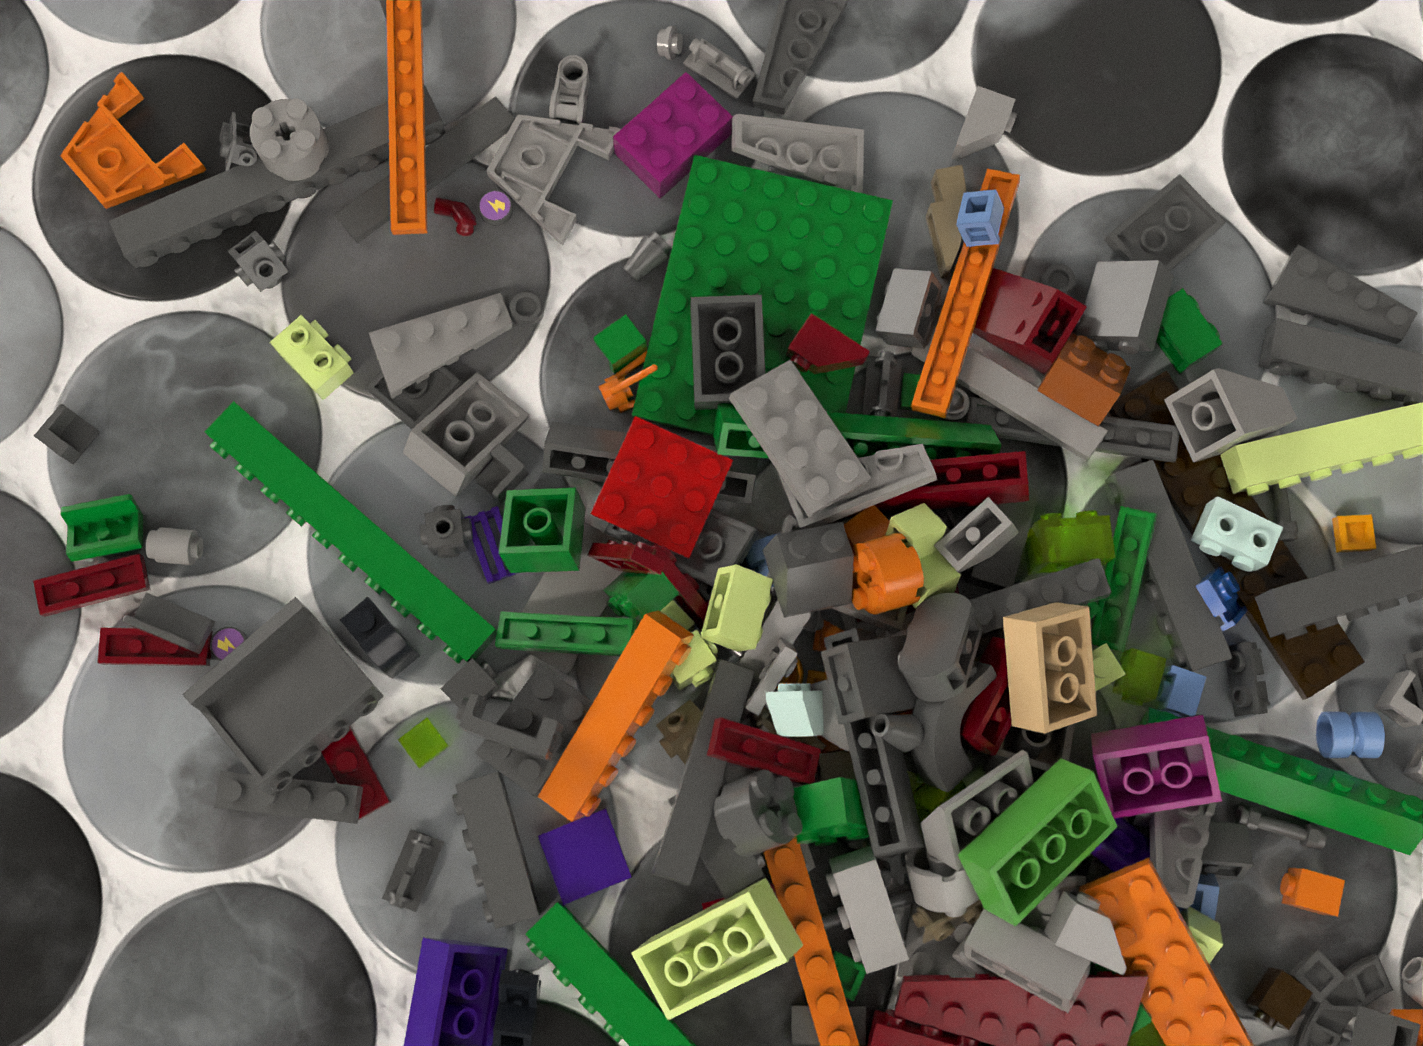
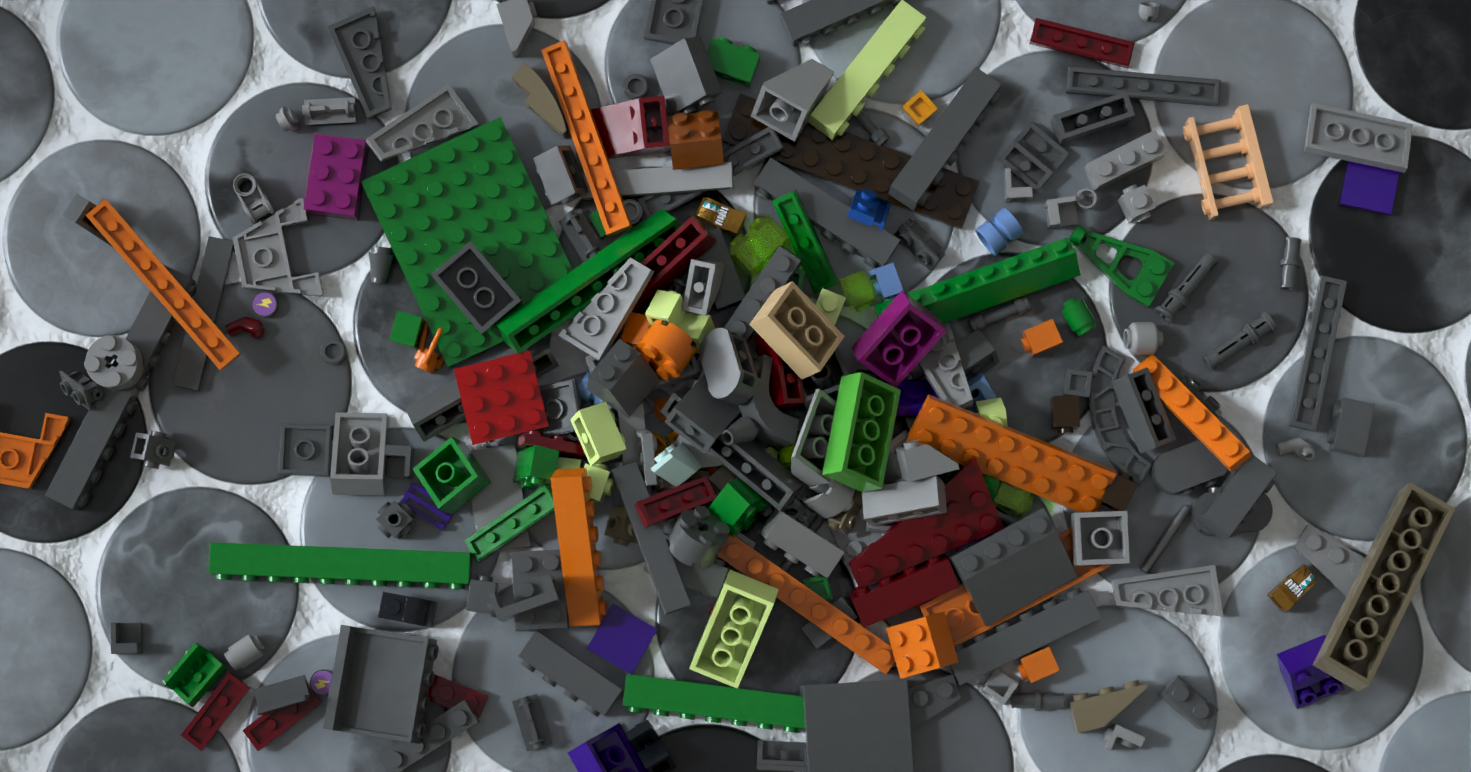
camera: 30 degrees left, 5 degrees up
(312, 357) = (232, 480): yellowish green brick -> none
(423, 743) = (480, 648): clear neon green tile -> none
(426, 343) = (292, 422): light grey wing -> none
(628, 557) = (513, 453): dark red plate -> none
(799, 438) = (558, 309): light grey plate -> none
(824, 348) = (529, 242): dark red slope -> none
(980, 218) = (560, 88): medium blue brick -> none
(1047, 476) = (721, 216): none -> pearl gold leg
(1236, 535) = (850, 166): light aqua brick -> none
(1372, 899) = (1078, 316): none -> green brick

